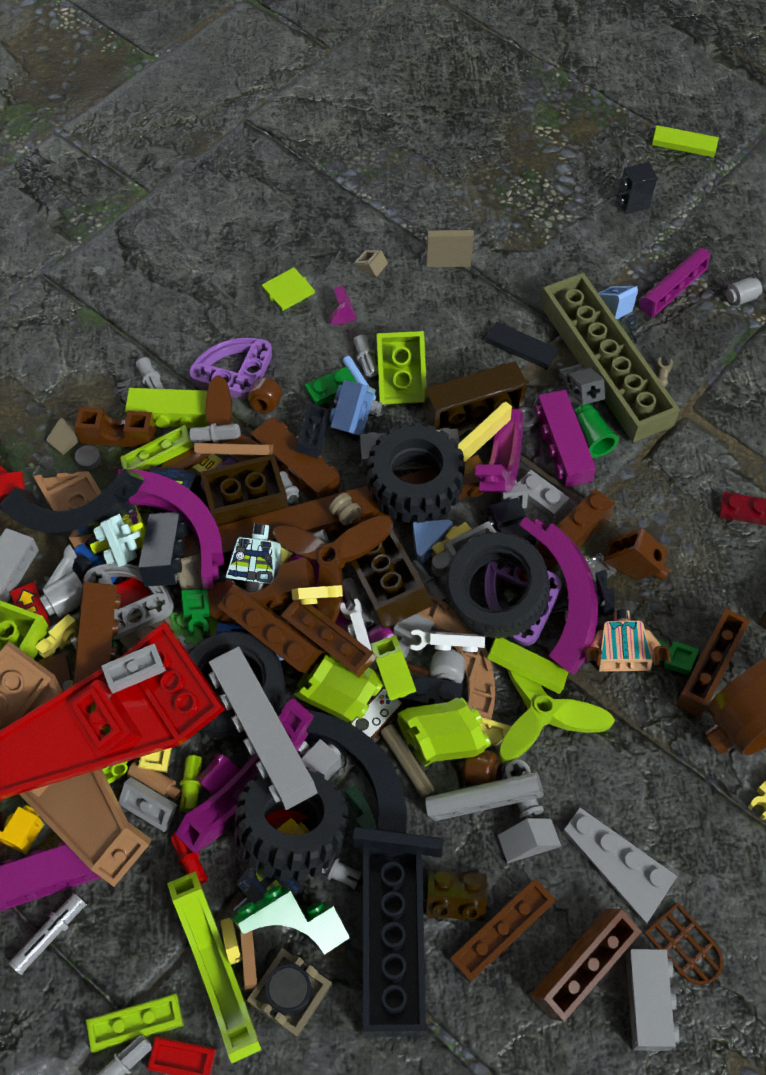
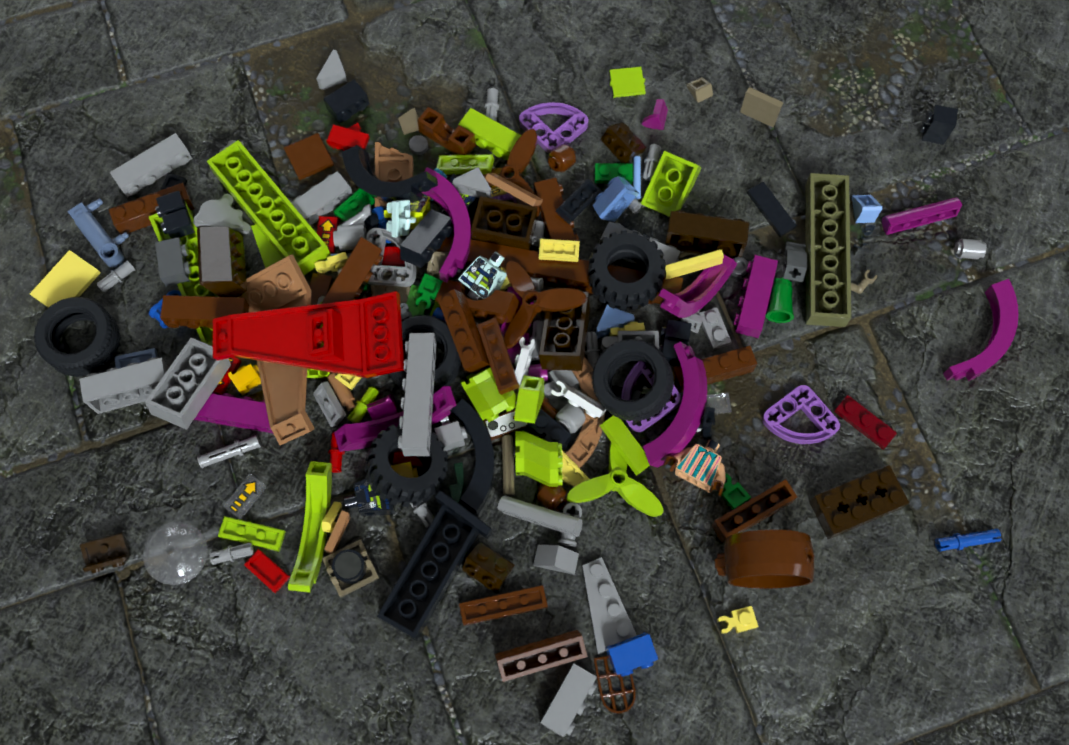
camera: 30 degrees right, 10 degrees up
(47, 558) = (353, 205): none -> green plate
(99, 979) = (245, 496): none -> clear tile
(133, 668) = (360, 312): light grey plate -> none
(184, 464) = (473, 184): none -> light grey slope
(214, 433) = (507, 171): light grey axle -> none
(280, 908) = (370, 515): arch -> none
(311, 594) = (500, 321): light yellow plate -> none
(321, 350) = (622, 142): none -> dark brown bracket
(324, 489) = (559, 250): none -> light yellow plate
(345, 509) = (564, 271): dark tan wheel -> none
(637, 555) = (750, 409): reddish brown torso -> none
(685, 141) = (1010, 101): lime tile -> none
(687, 524) = (805, 405): none -> medium lavender beam
(687, 899) = (632, 654): none -> blue brick

